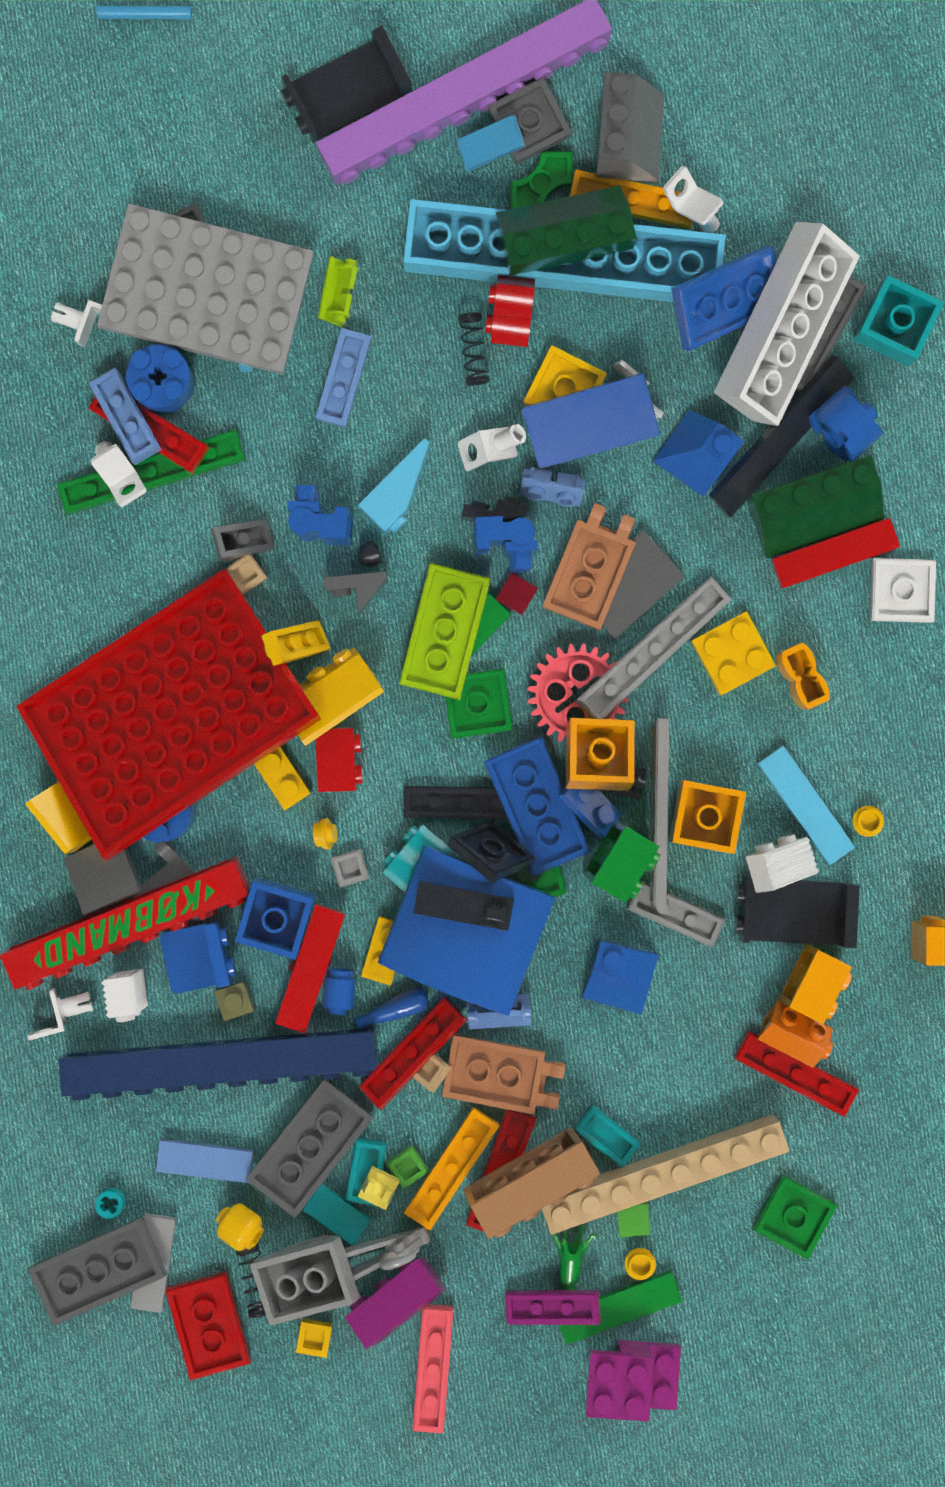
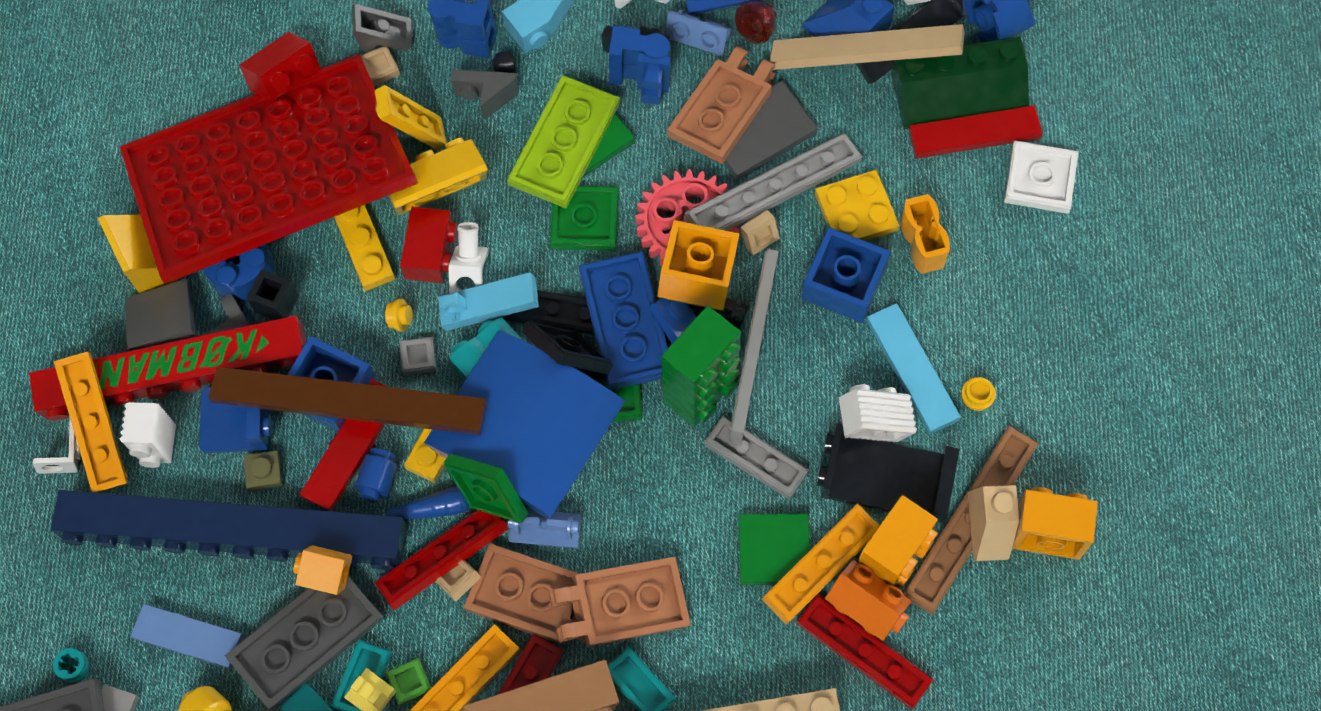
camera: 15 degrees right, 20 degrees down
(71, 993) = (91, 422): none -> light orange plate
(152, 600) = (279, 66): none -> red brick
(204, 840) = (272, 296): none -> black brick
(303, 942) = (348, 400): none -> reddish brown tile
(315, 1095) = (322, 569): none -> light orange brick
(378, 772) = (467, 257): none -> white bracket
(406, 809) = (488, 301): none -> medium azure hinge
(445, 1000) = (486, 488): none -> green tile
(463, 905) = (525, 386): black hinge -> none
(516, 594) = (644, 122): dark red tile -> none
(582, 1073) = (623, 602): none -> nougat tile
(609, 469) = (755, 21): none -> clear red brick
(620, 975) = (683, 509): blue slope -> none
(646, 696) = (760, 232): none -> tan plate
(705, 996) = (771, 546): none -> green tile
(707, 816) = (803, 355): light orange brick -> none
(724, 490) = (868, 47): none -> tan tile
(734, 730) = (845, 275): none -> blue brick
(749, 1005) = (821, 564): none -> light orange tile
(878, 934) = (955, 541): none -> medium nougat tile
(896, 944) = (993, 521): none -> tan slope

